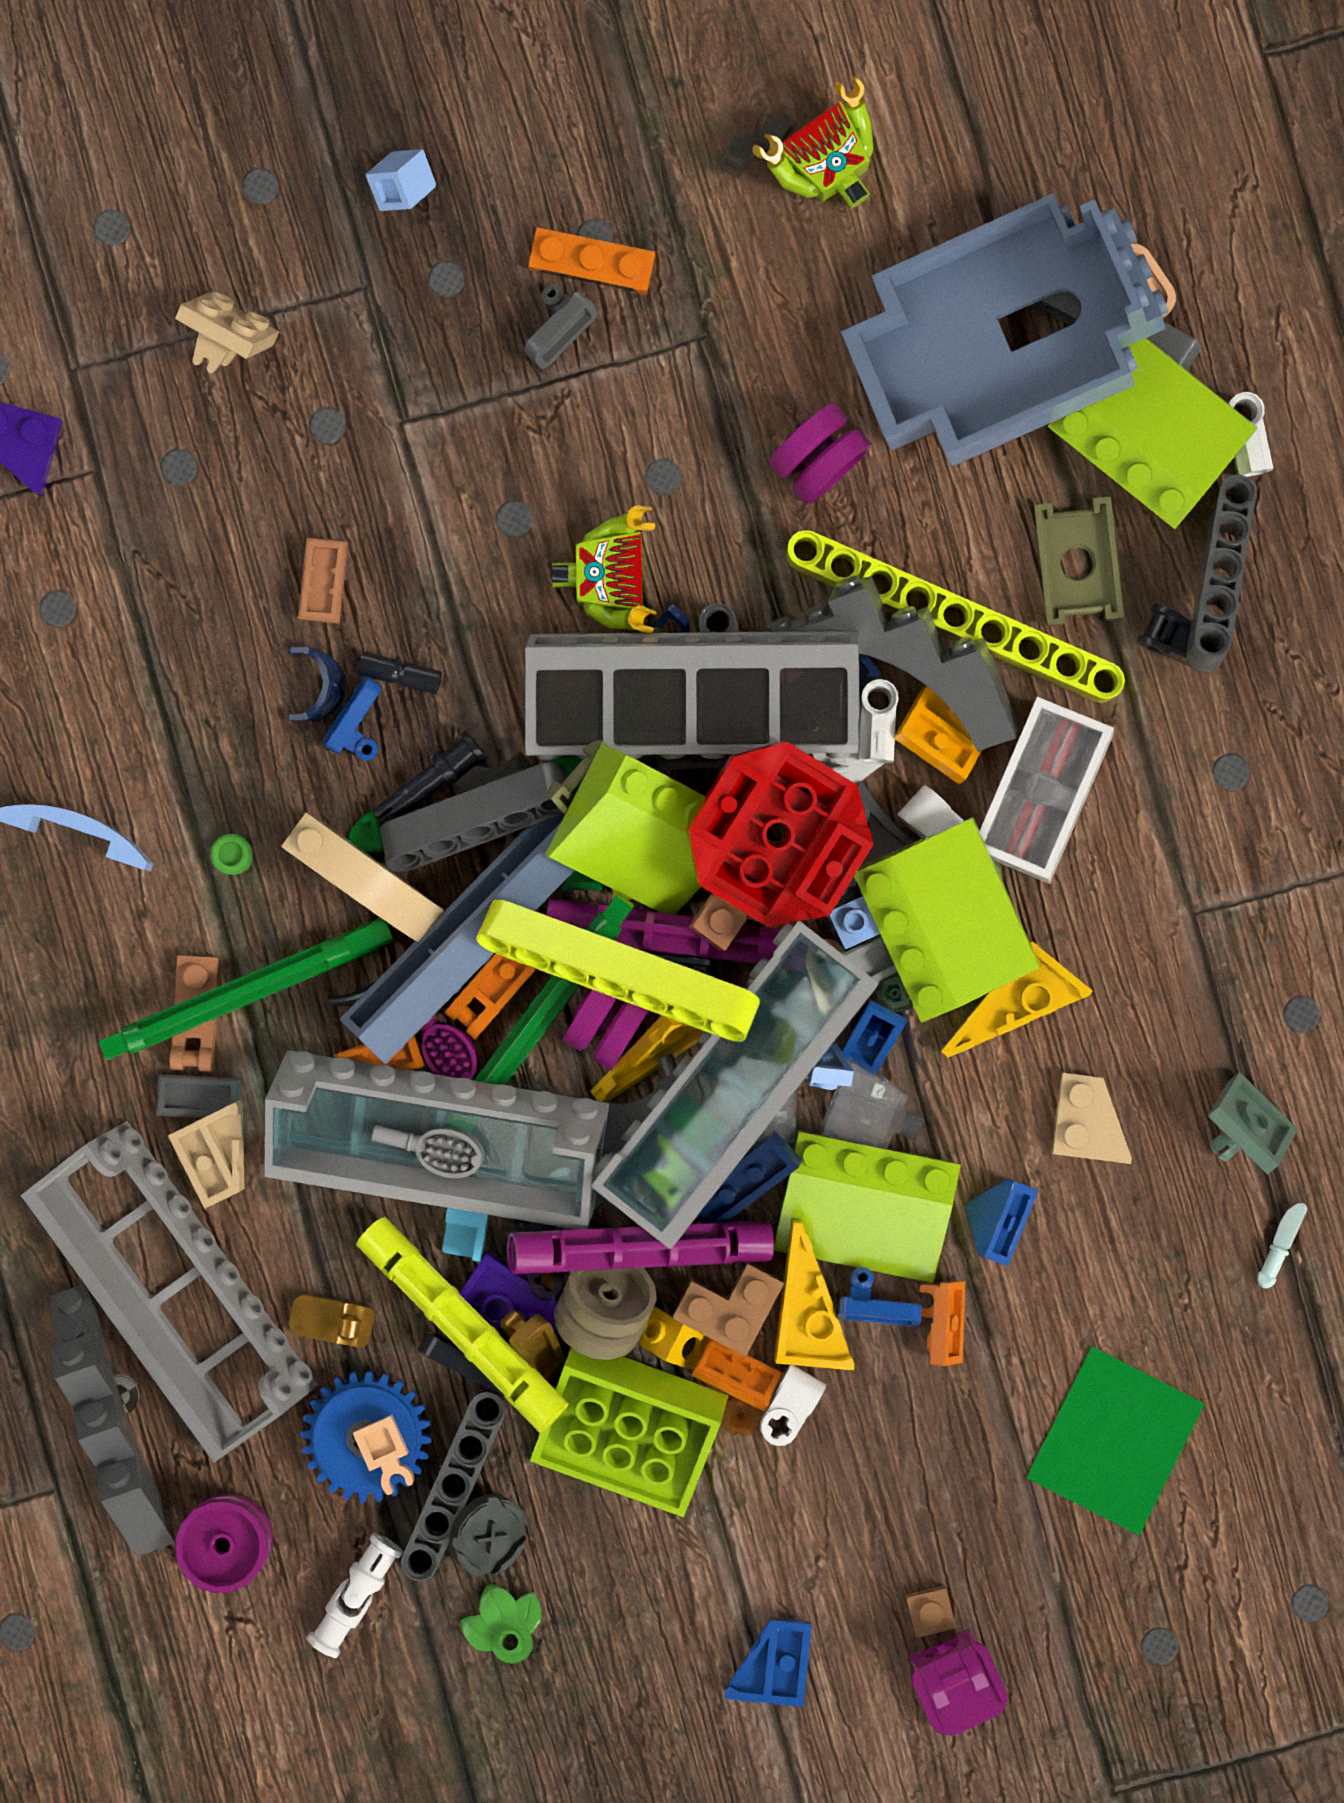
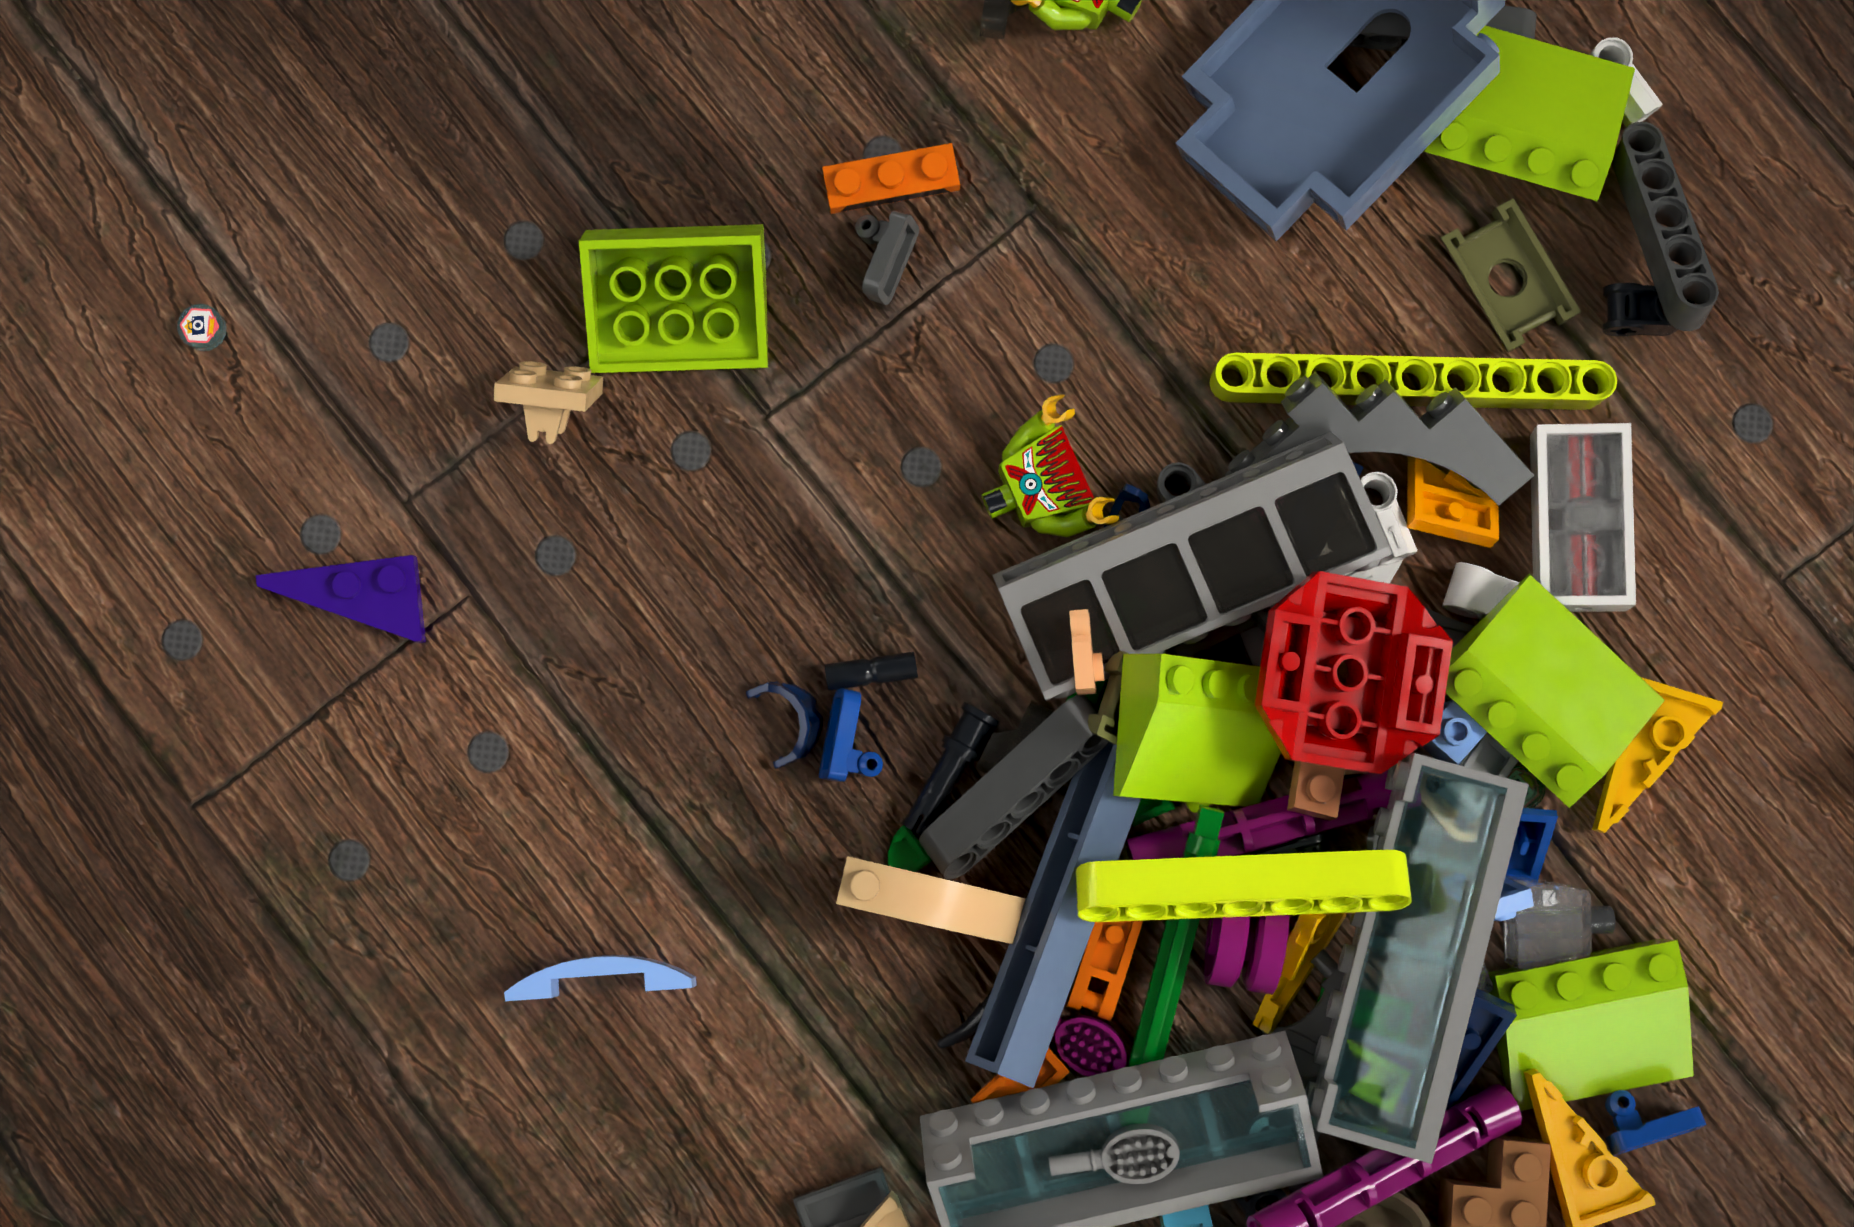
camera: 25 degrees left, 5 degrees down
(195, 977) = (804, 1115): nougat plate -> none
(231, 854) = (774, 932): bright green tile -> none
(248, 989) = (851, 1070): green piece -> none
(323, 581) = (753, 609): nougat plate -> none
(365, 289) = (675, 298): none -> lime slope
(401, 180) = (665, 175): light blue panel -> none
(567, 738) = (1087, 665): none -> light nougat plate
(815, 449) = (1207, 271): magenta wheel -> none
(947, 1329) = (1735, 1128): orange plate -> none
(999, 1219) = (1731, 979): blue slope -> none
(1087, 1121) = (1774, 839): tan wing -> none

